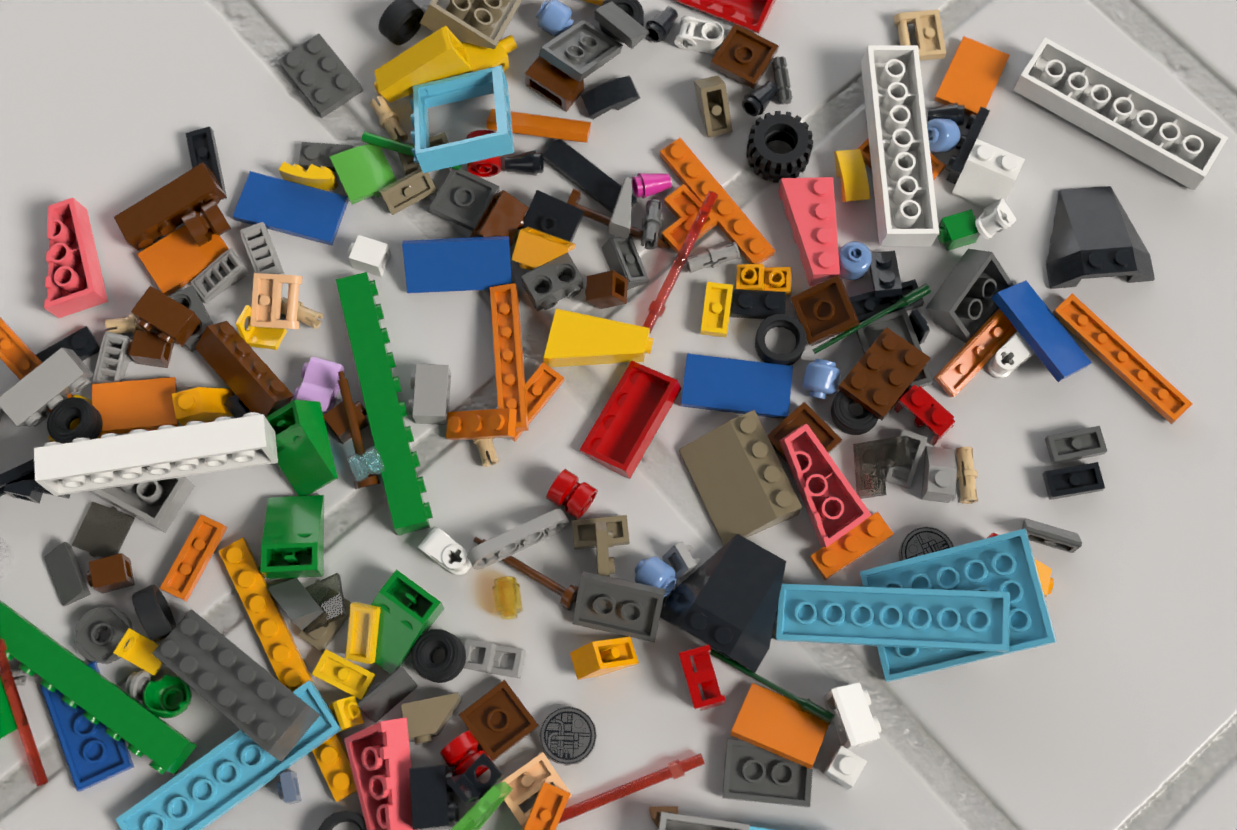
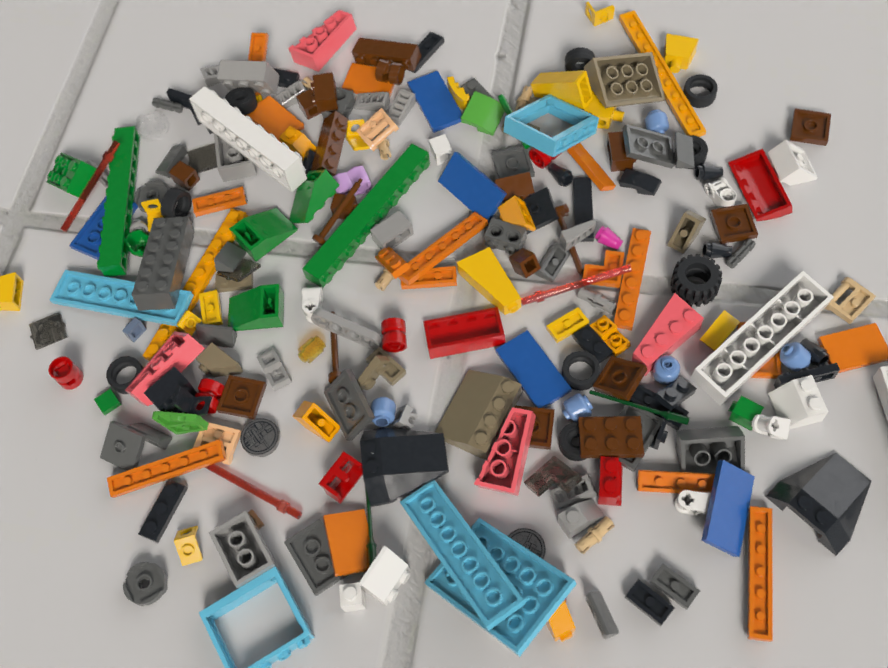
camera: 60 degrees right, 10 degrees down
(320, 75) = (518, 58): dark grey plate -> none
(362, 632) = (236, 297): yellow tile -> none
(369, 463) = (324, 228): clear light blue wheel -> none
(407, 191) = (491, 138): dark tan plate -> none
(425, 647) = (258, 348): black tyre -> none
(651, 224) = (584, 255): dark grey pin -> none
(851, 546) = (492, 502): orange plate -> none

